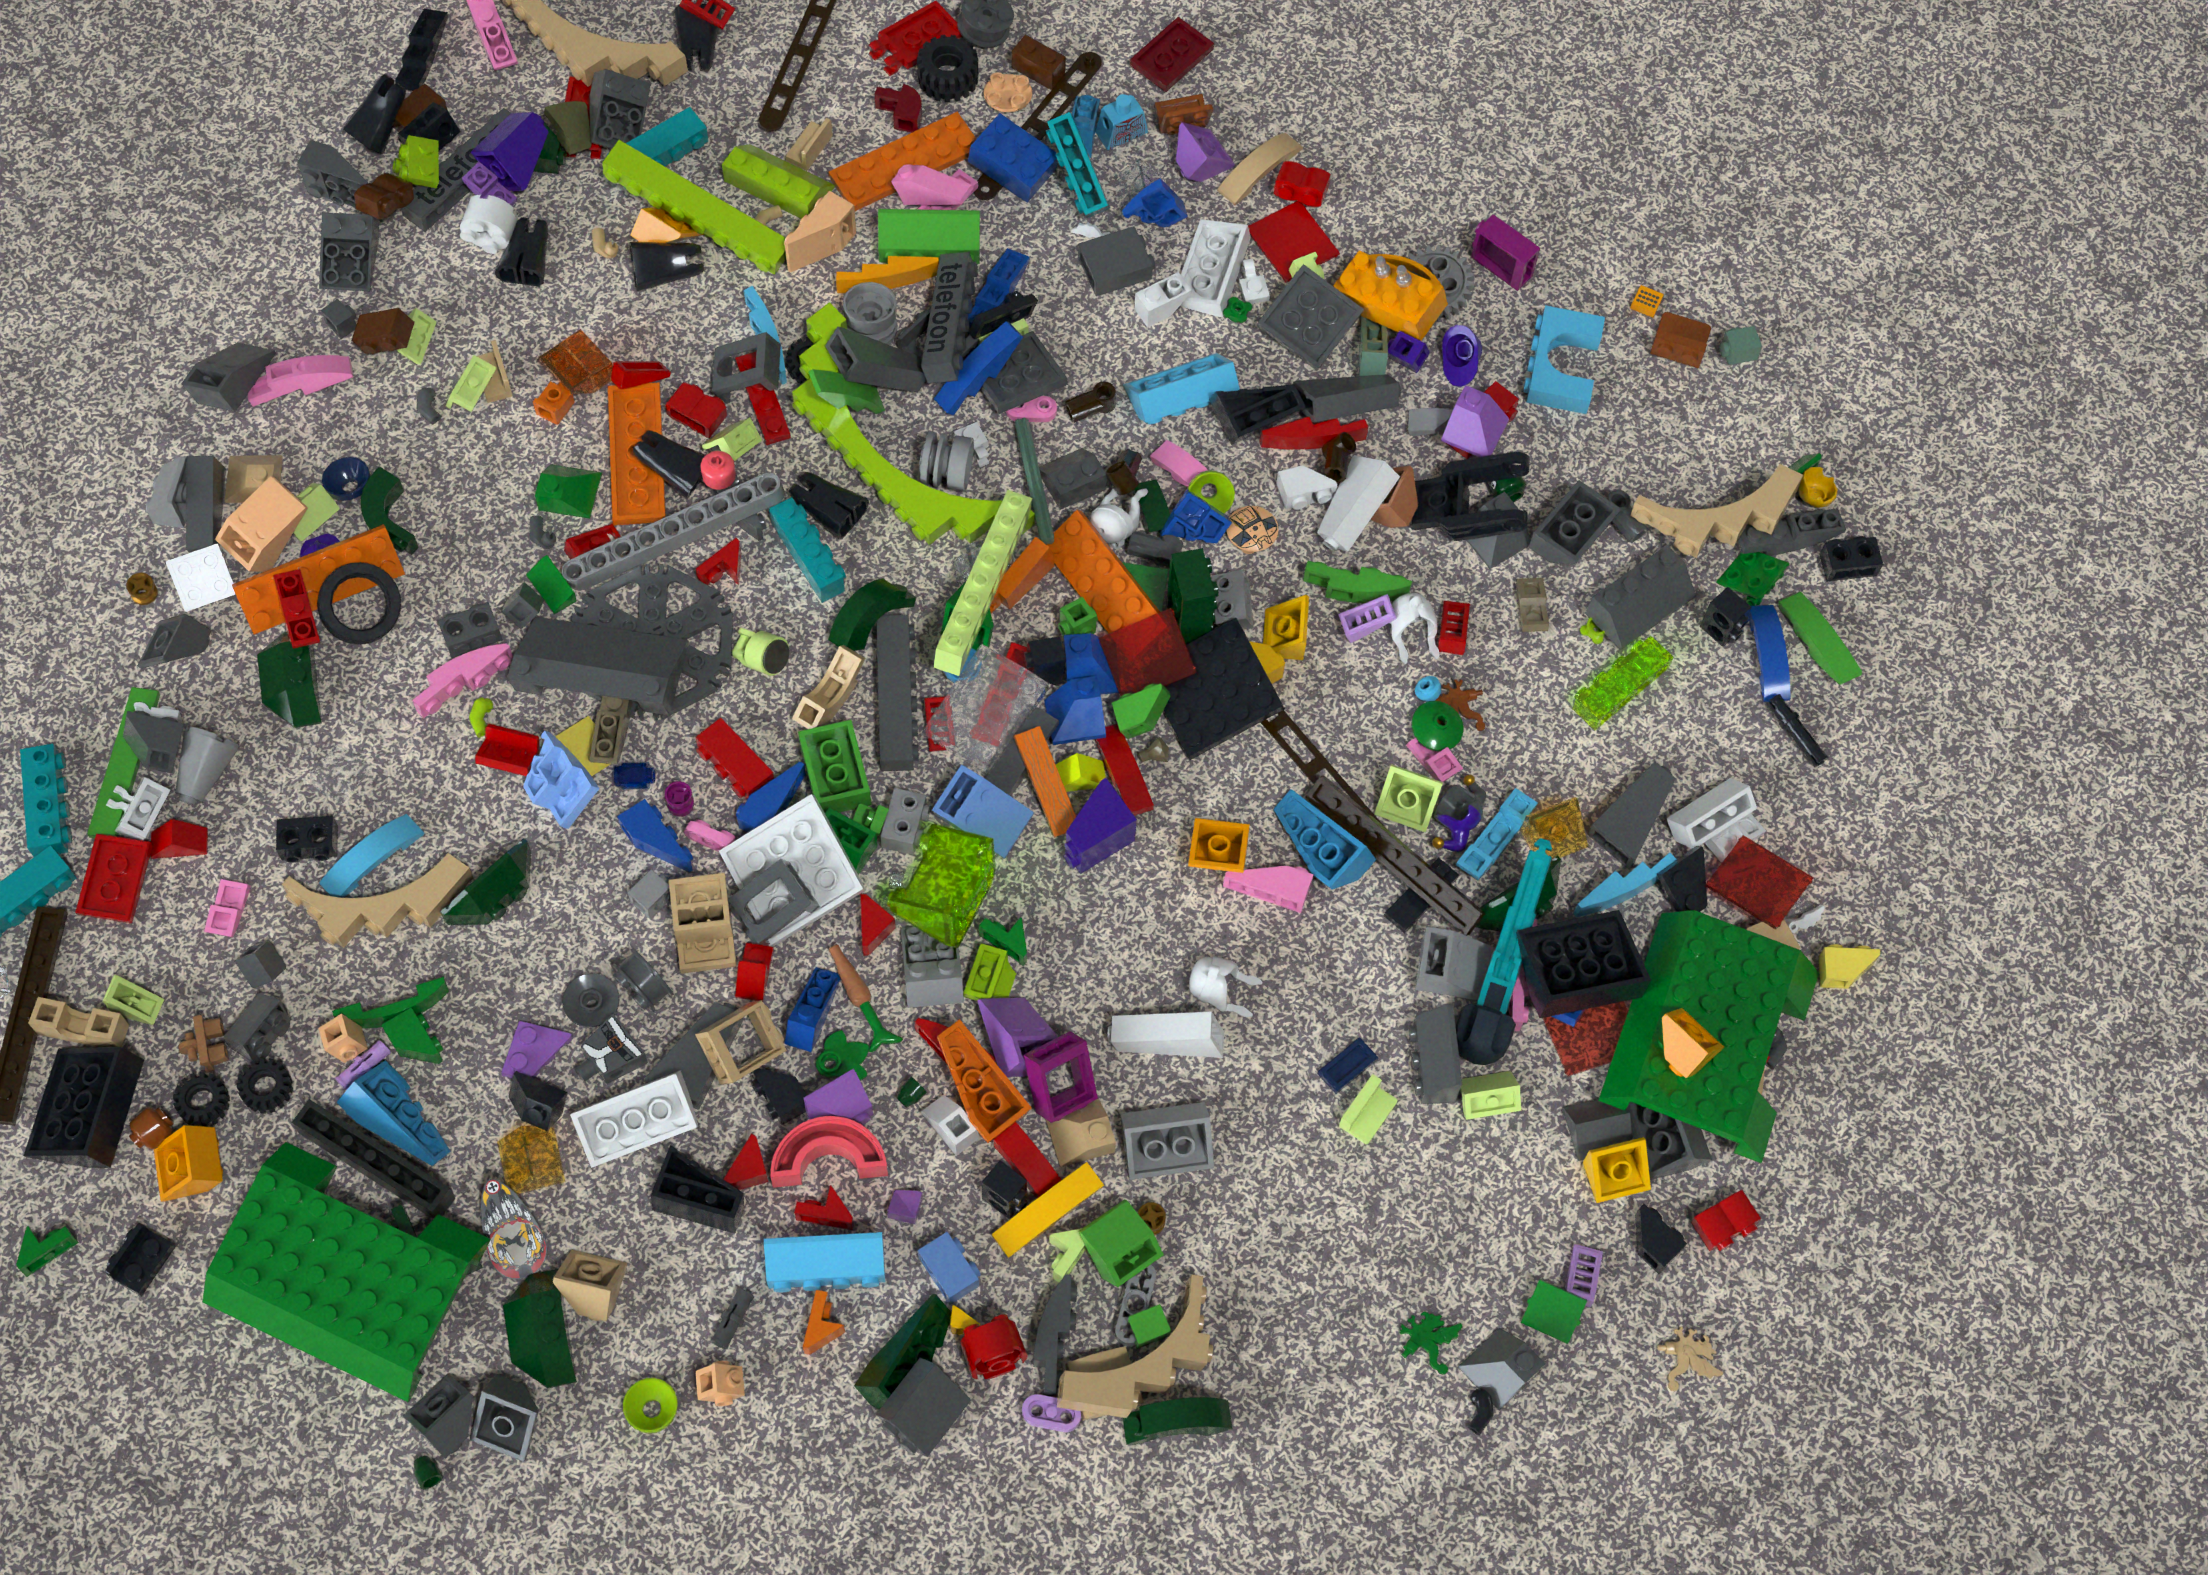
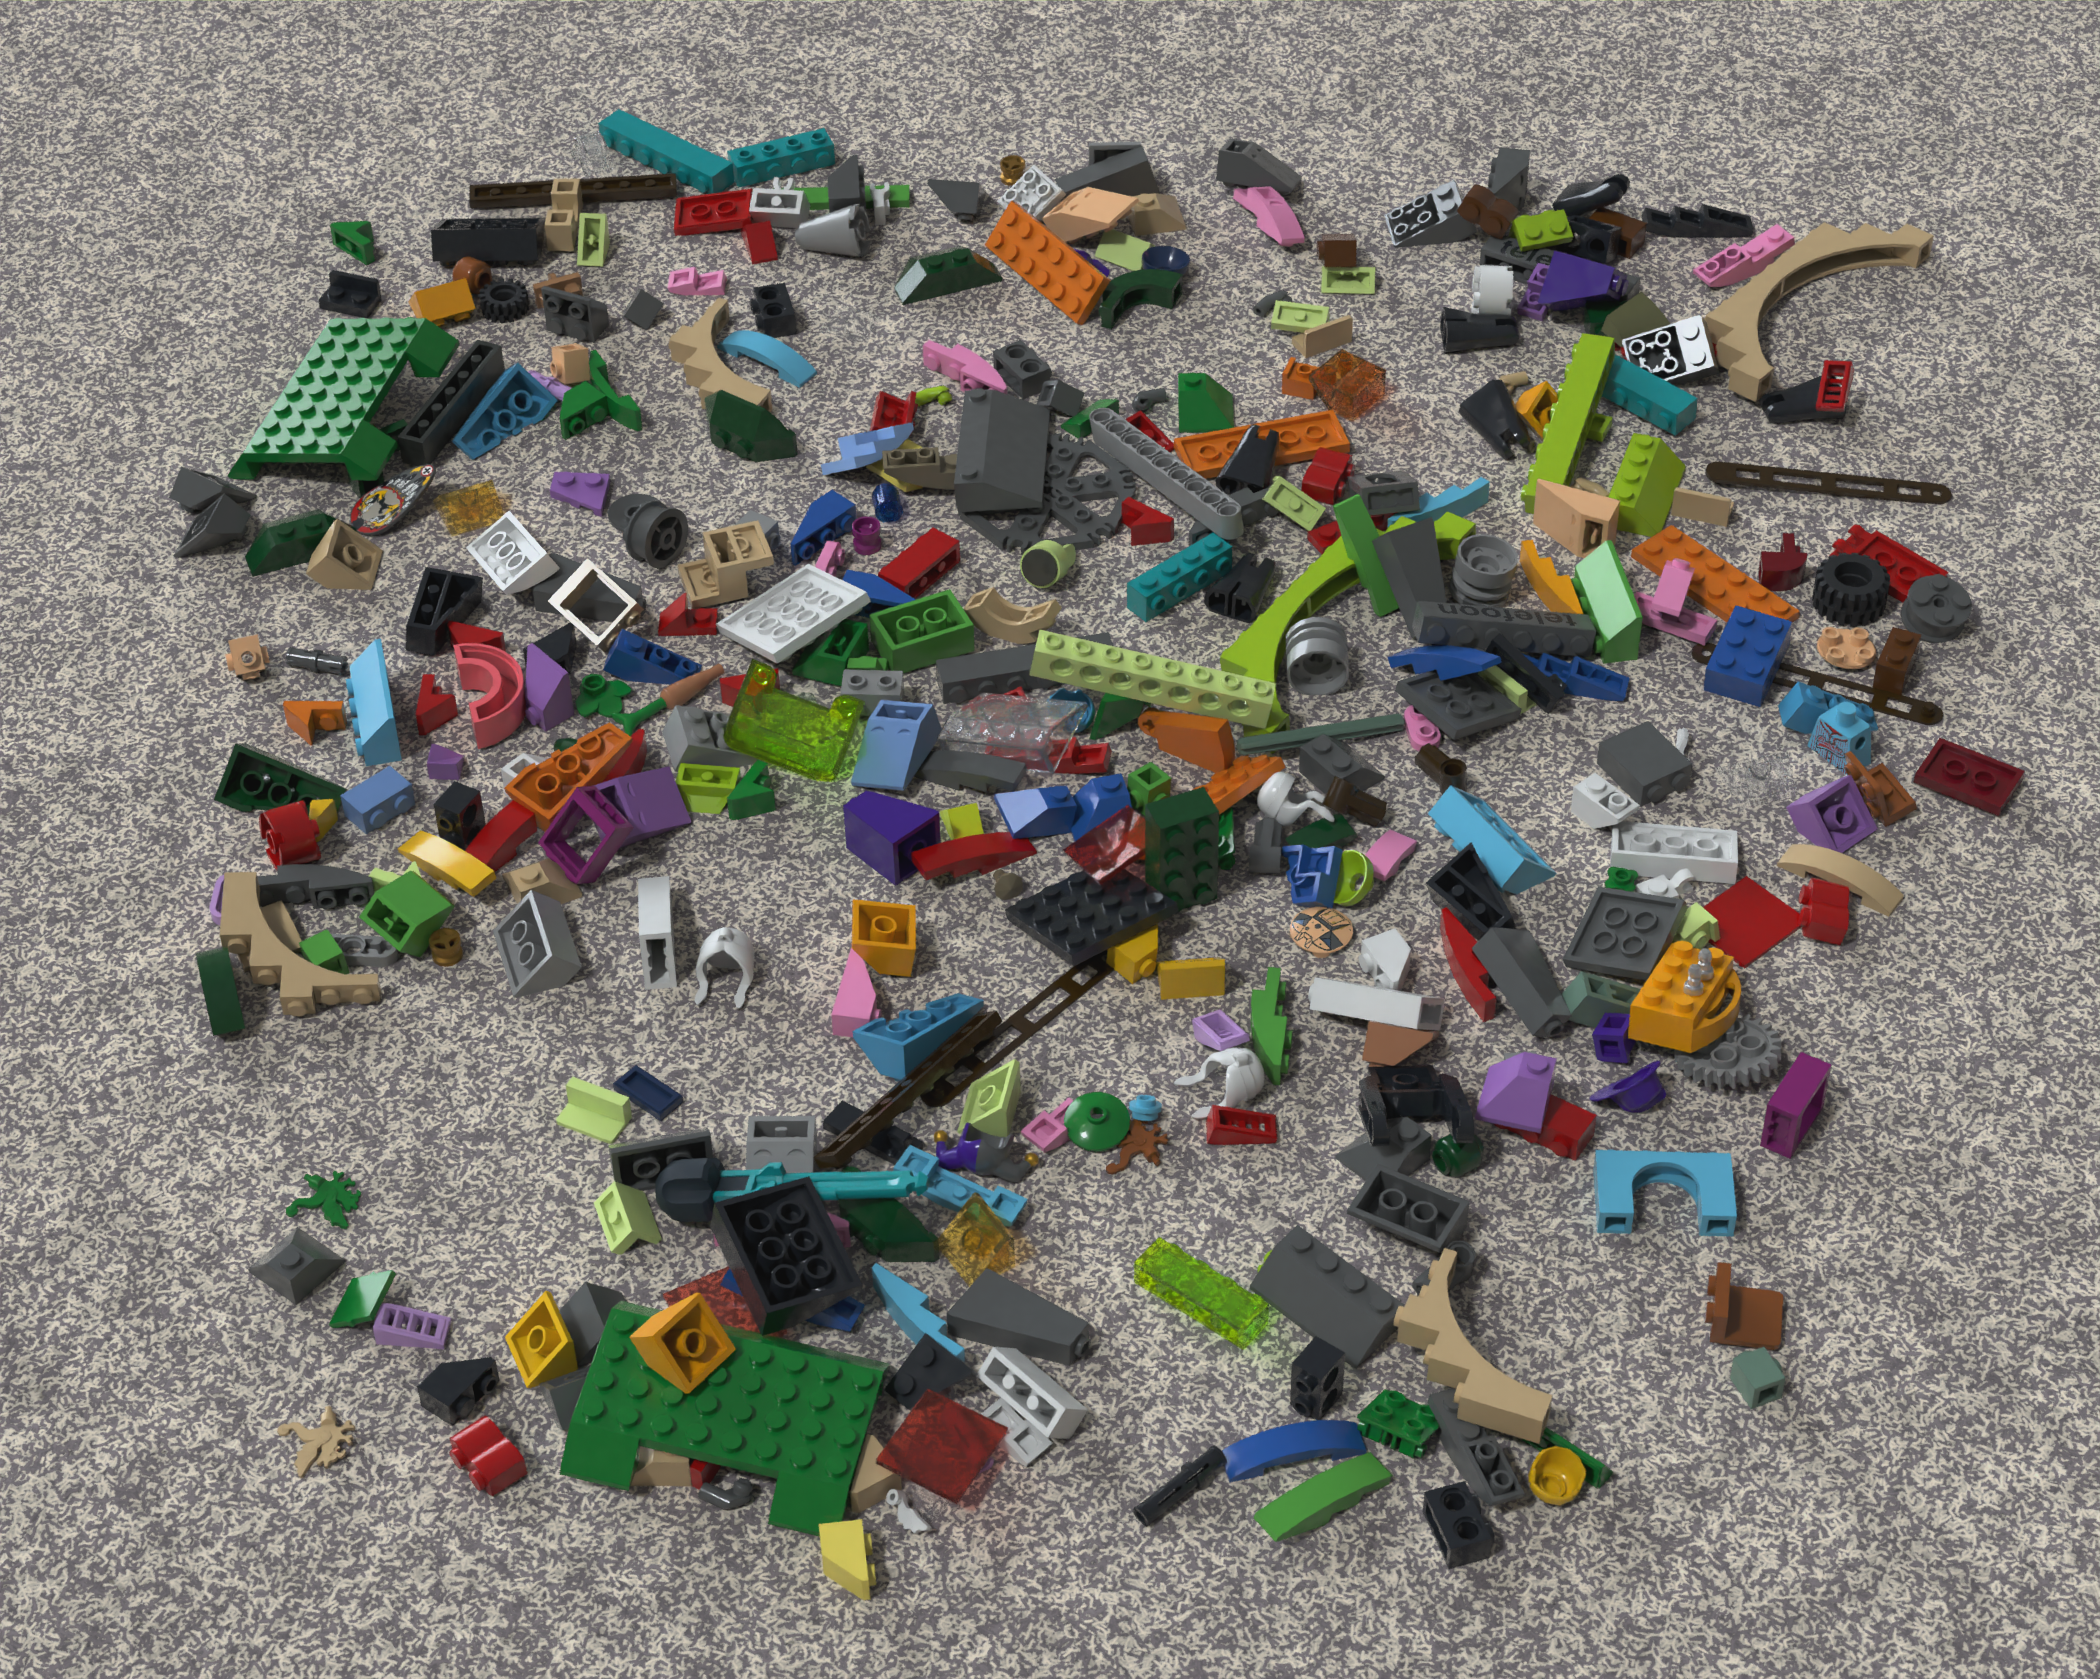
camera: 85 degrees right, 20 degrees down
(260, 1070) = (512, 334): black tyre -> none
(296, 609) = (1001, 248): red slope -> none
(339, 318) = (1350, 223): dark grey plate -> none
(370, 572) = (1007, 264): black tyre -> none
(424, 1470) = (158, 495): dark green hose -> none
(536, 1101) = (522, 493): black slope -> none
(610, 1053) = (584, 534): torso -> none
(635, 373) = (1354, 425): red slope -> none
(643, 1392) = (223, 611): lime piece -> none
(718, 470) = (1241, 481): coral head -> none
(803, 902) = (760, 611): dark grey panel -> none
(864, 609) = (1113, 618): dark green arch -> none
(922, 1408) = (223, 792): dark grey brick -> none
(980, 442) = (1360, 686): white plate -> none
(1046, 659) = (1083, 758): black slope -> none
(1046, 780) = (954, 778): orange tile -> none
(1078, 165) = (1745, 702): teal brick -> none
(1140, 711) = (1047, 854): bright green slope -> none
(1157, 205) = (1730, 780): blue slope -> none
(1233, 599) = (1210, 914): light grey brick -> none
(1337, 456) = (1433, 982): dark brown piece -> none
(1484, 1408) = (245, 1252): black arm -> none
(1532, 604) = (1299, 1199): dark tan slope -> none
(1647, 301) = (1794, 1277): light orange tile -> none

